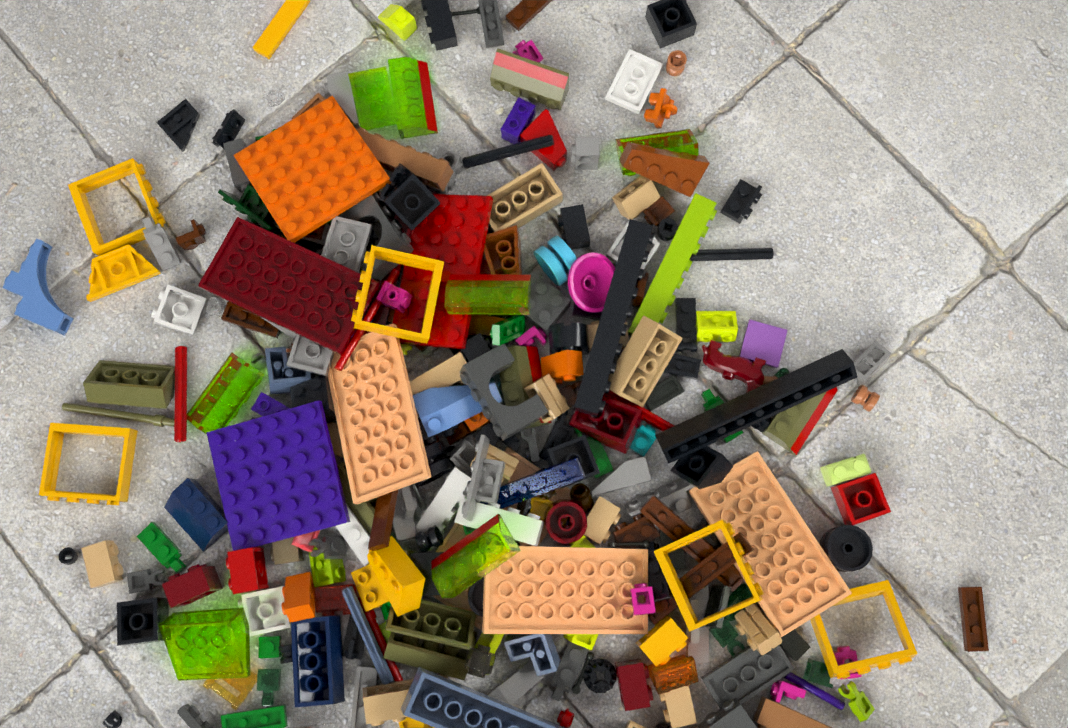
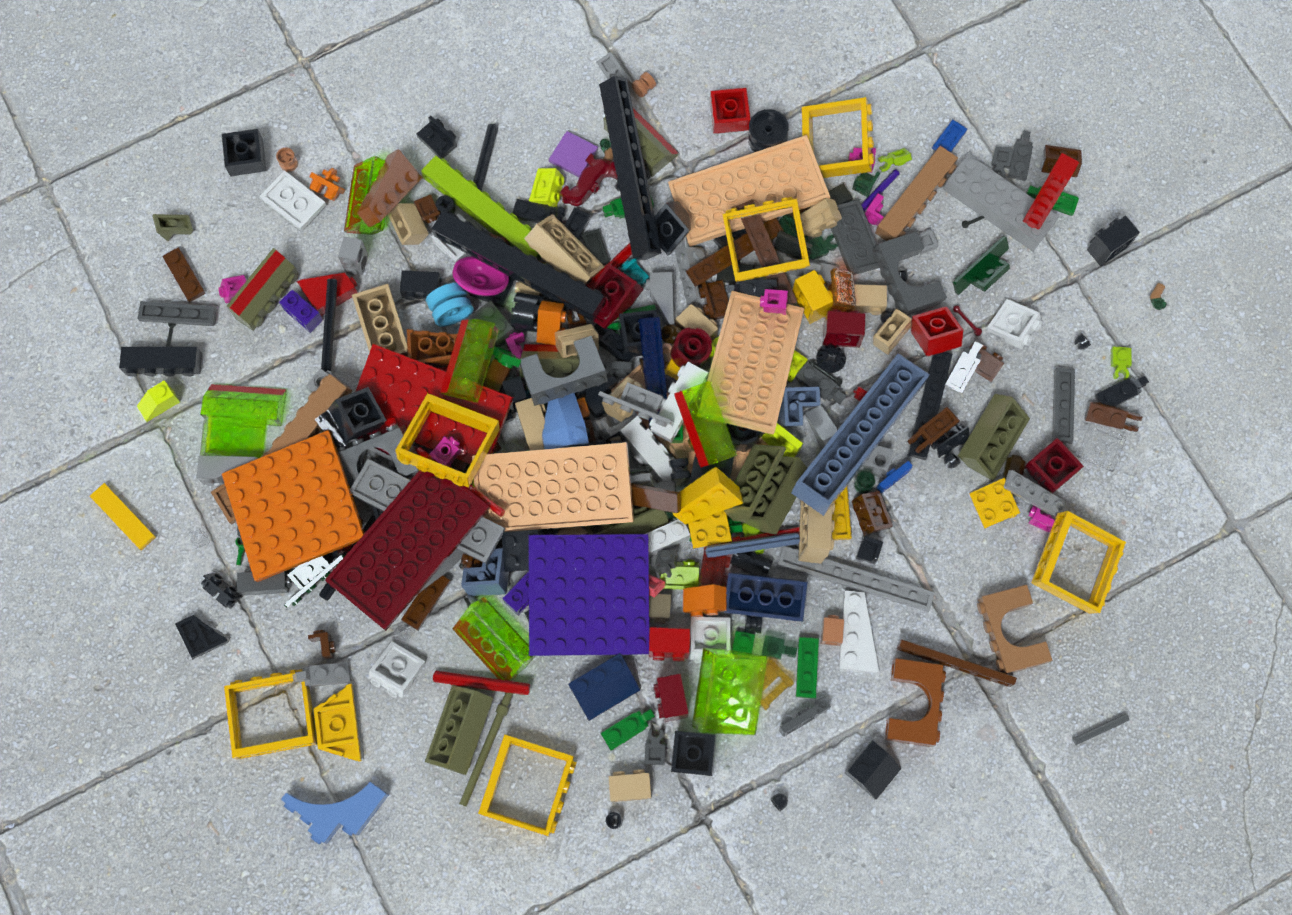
camera: 80 degrees left, 5 degrees down
(480, 661) = (797, 445): clear smoke head -> none
(646, 543) = (726, 291): pearl dark grey hinge -> none
(845, 470) = (701, 116): yellowish green brick -> none
(973, 619) = (847, 53): reddish brown plate -> none

